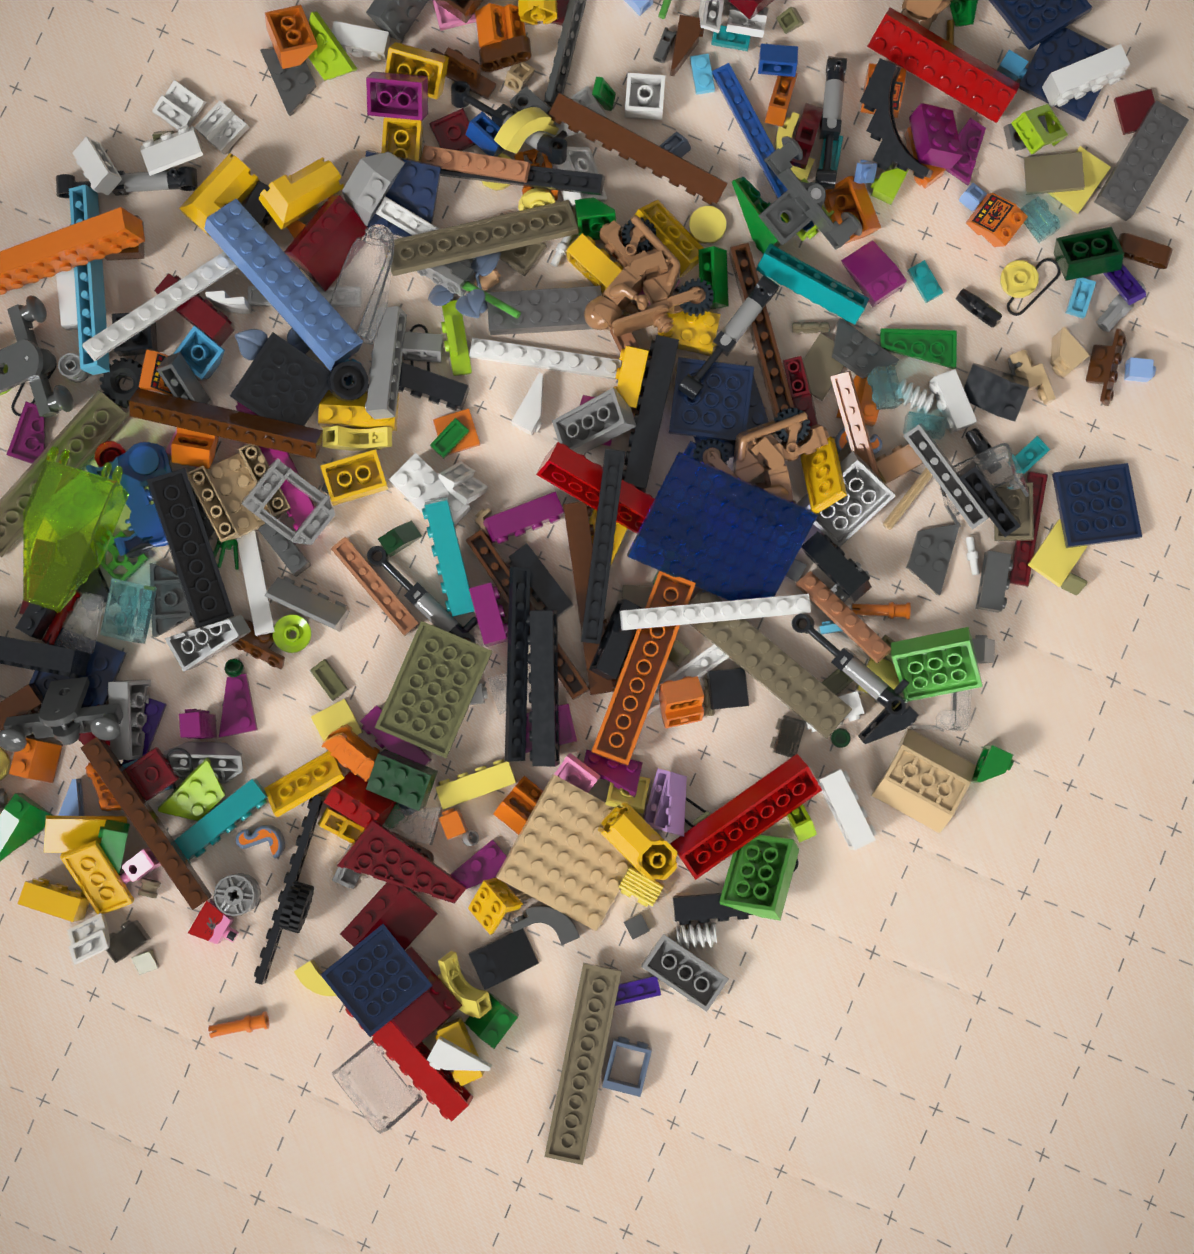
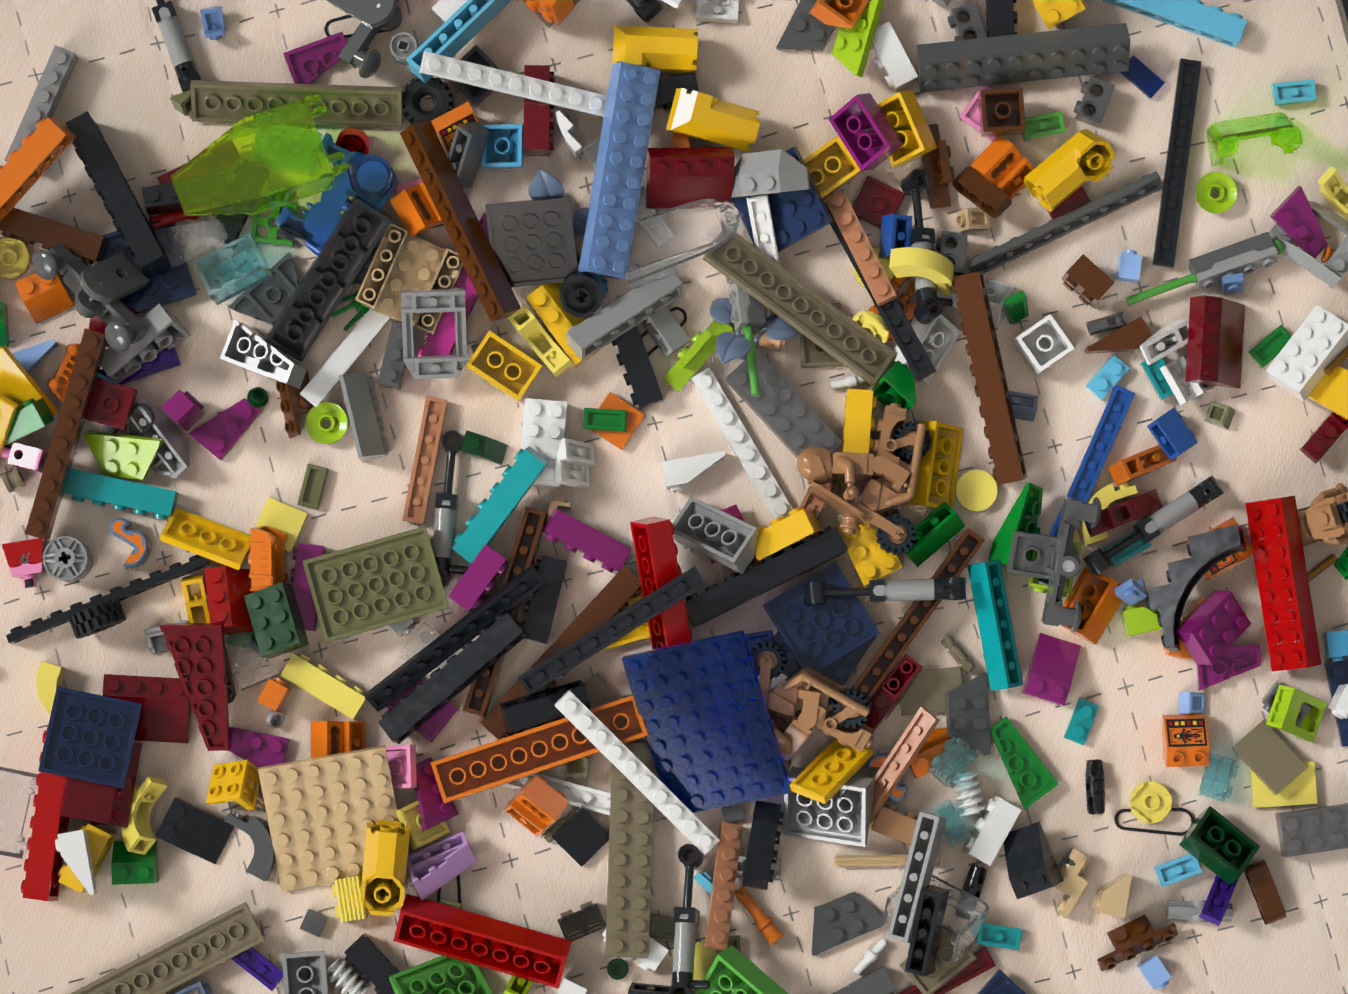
camera: 45 degrees right, 0 degrees up
(625, 30) = (1087, 281): none -> reddish brown brick

